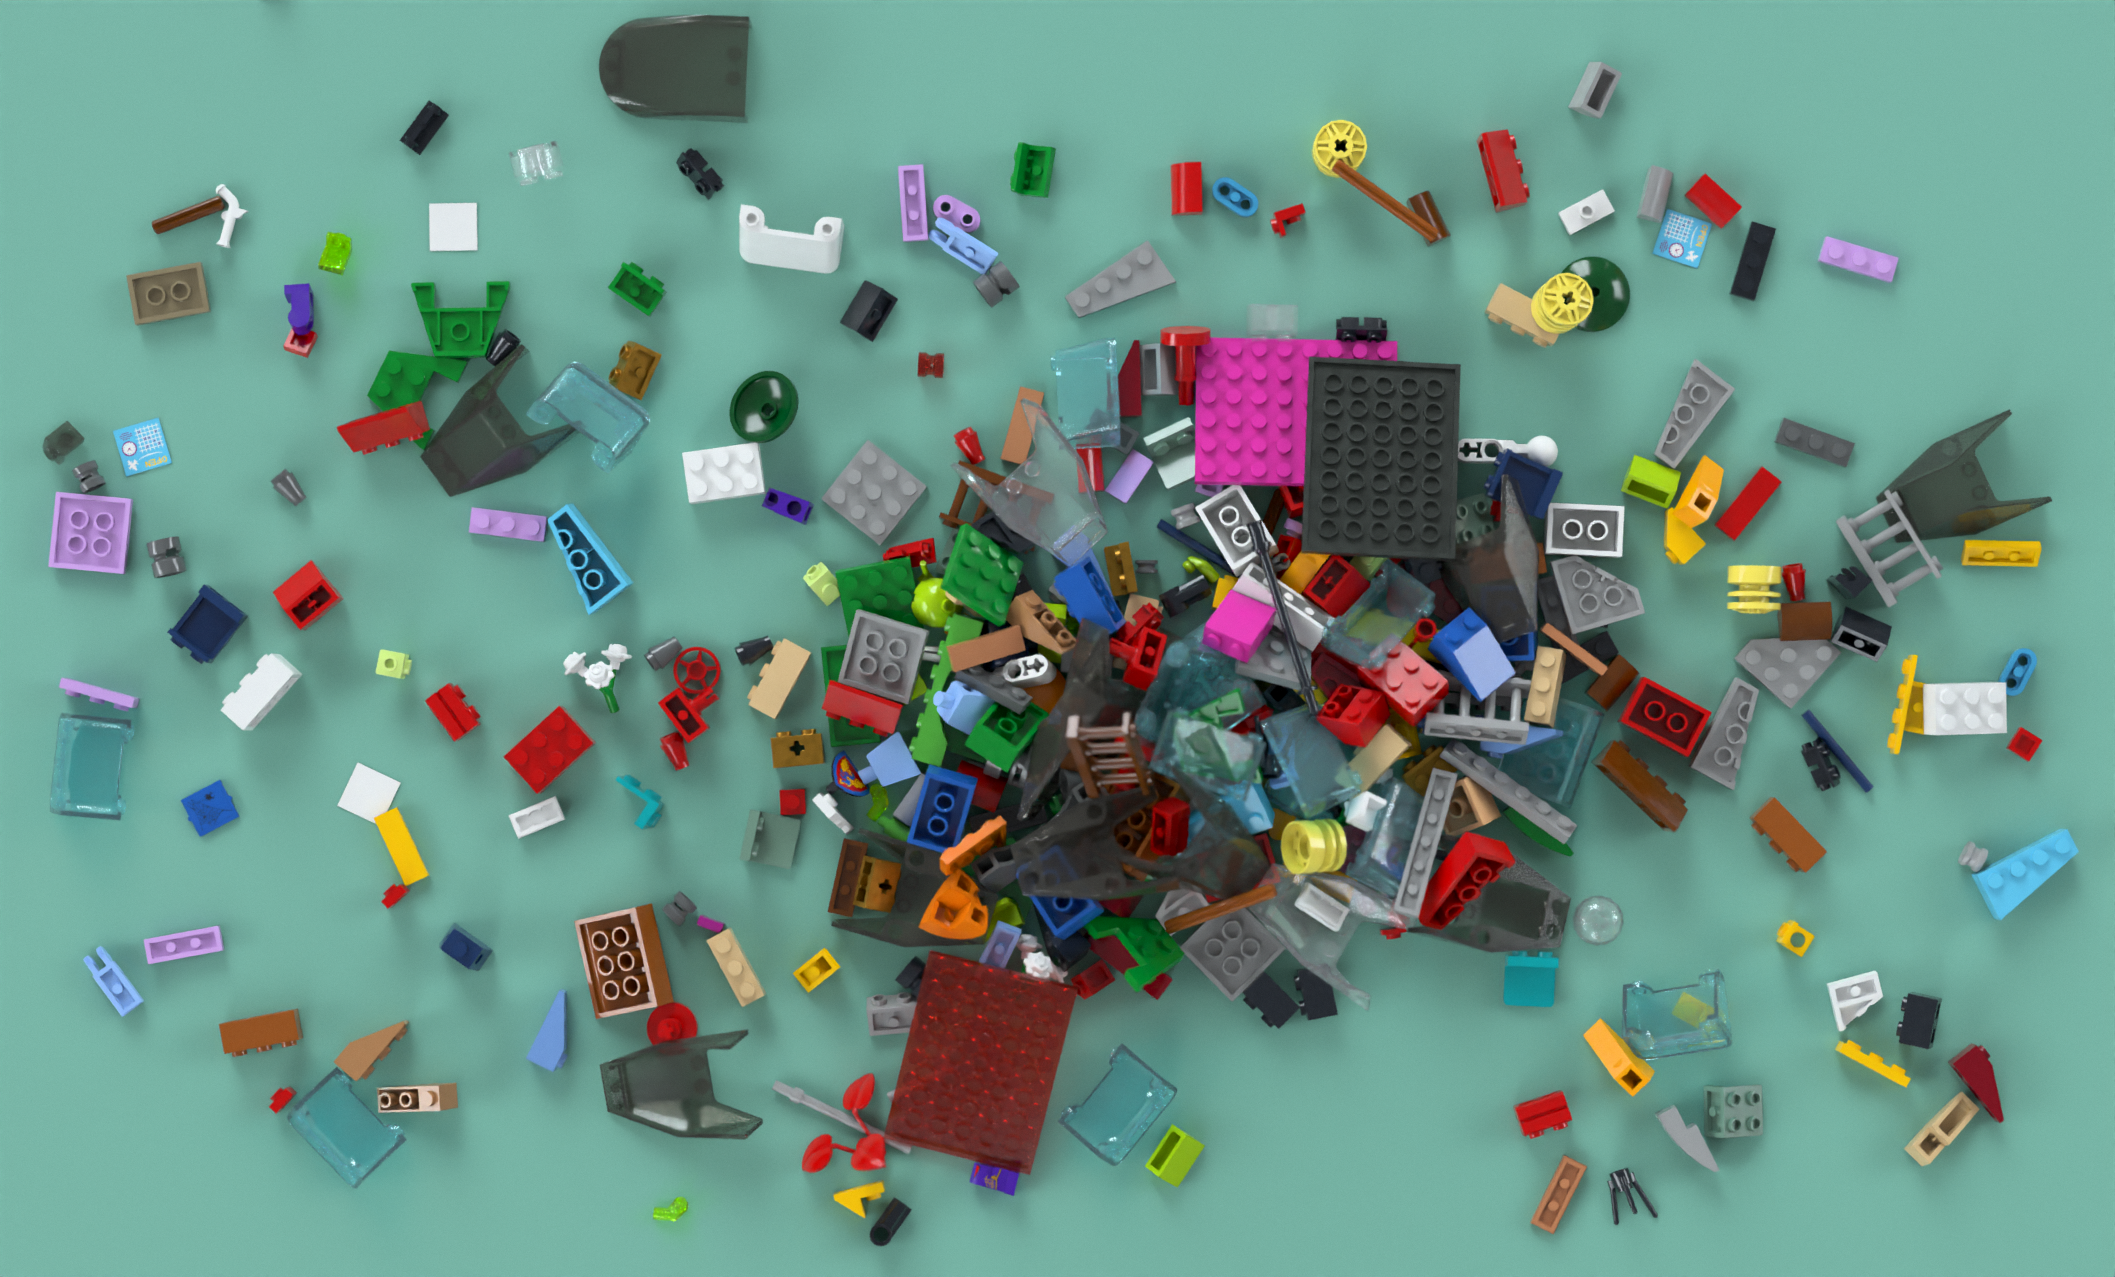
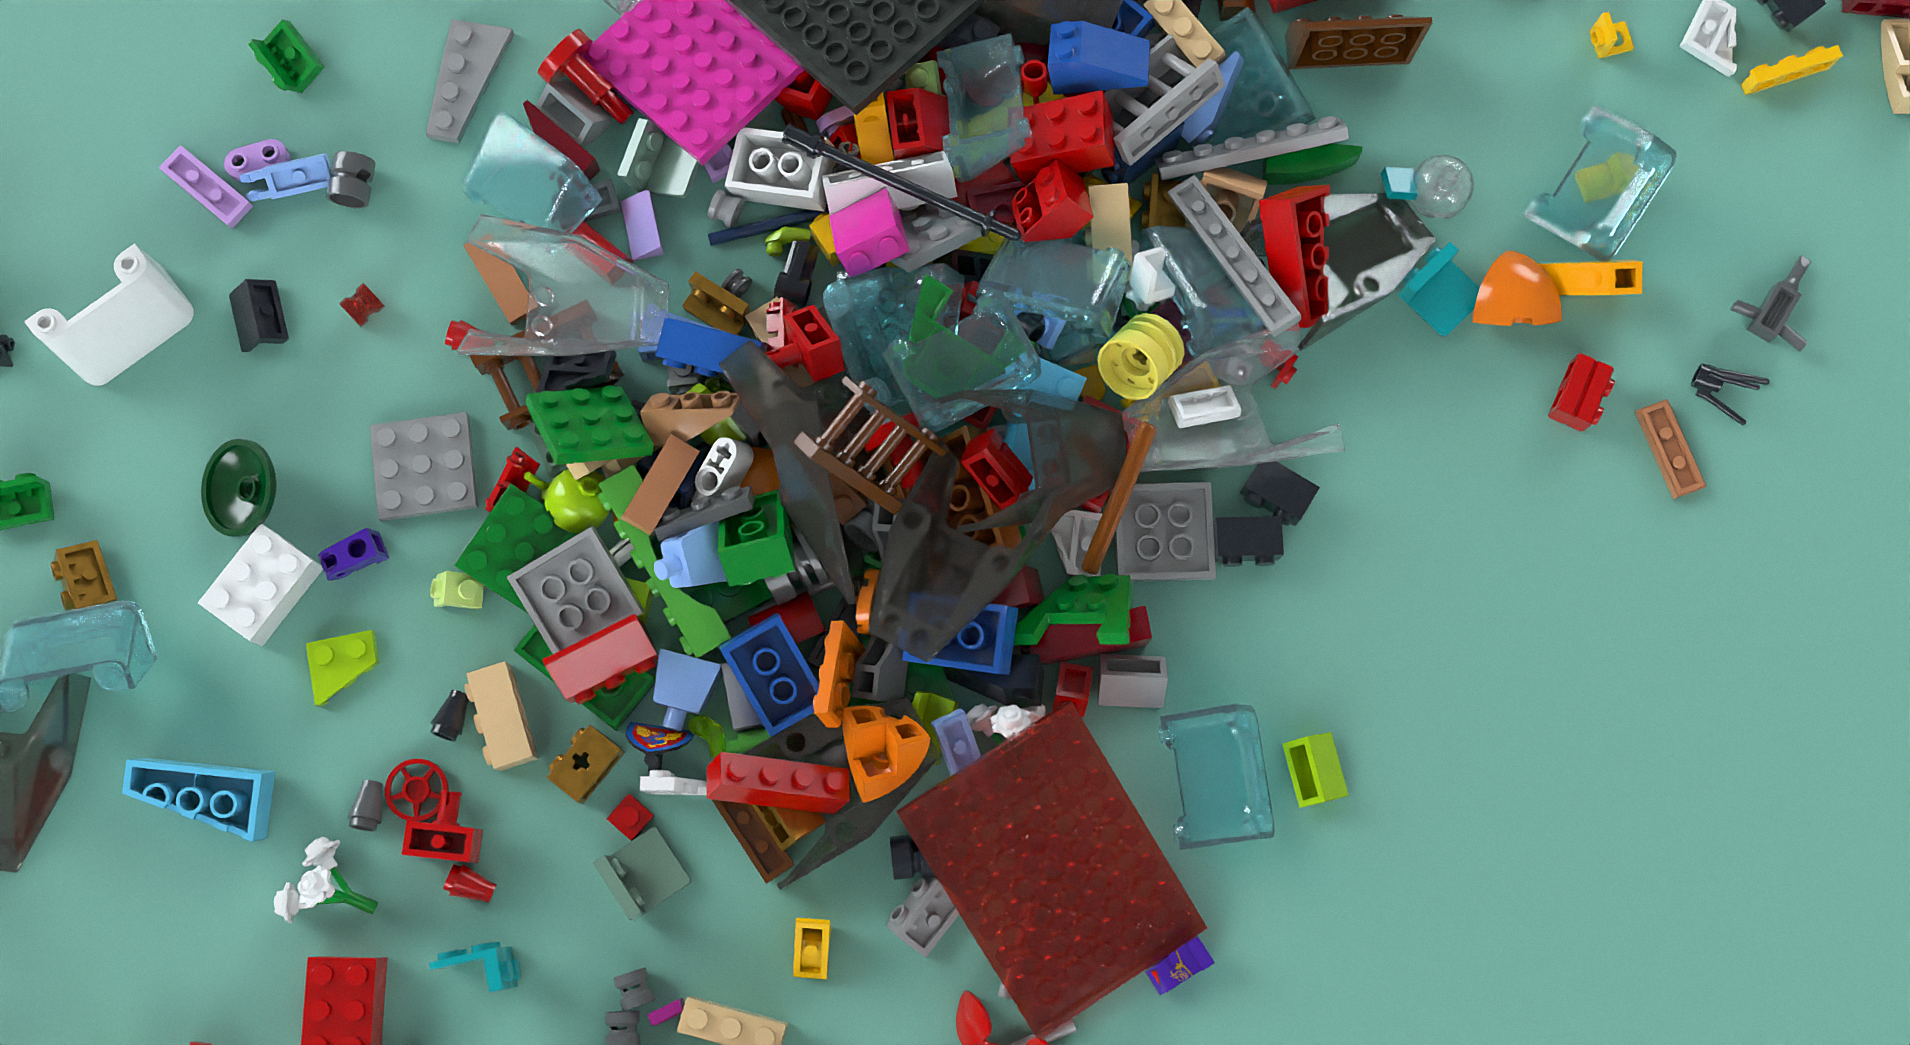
camera: 50 degrees left, 10 degrees down
(508, 524) = (98, 840): lavender plate -> none
(701, 898) = (636, 996): none -> dark grey wheel
(723, 558) = (339, 662): none -> lime wing
(885, 870) = (777, 783): none -> red brick
(1031, 824) = (866, 601): none -> orange tile
(1128, 1009) = (1132, 681): none -> light grey brick
(1567, 1023) = (1517, 292): none -> orange brick
(1575, 893) = (1398, 183): none -> tile
(1686, 1137) = (1718, 286): light grey slope -> none
(1708, 1182) = (1777, 306): none -> dark grey piece
(1733, 1111) = (1727, 227): sand green bracket -> none

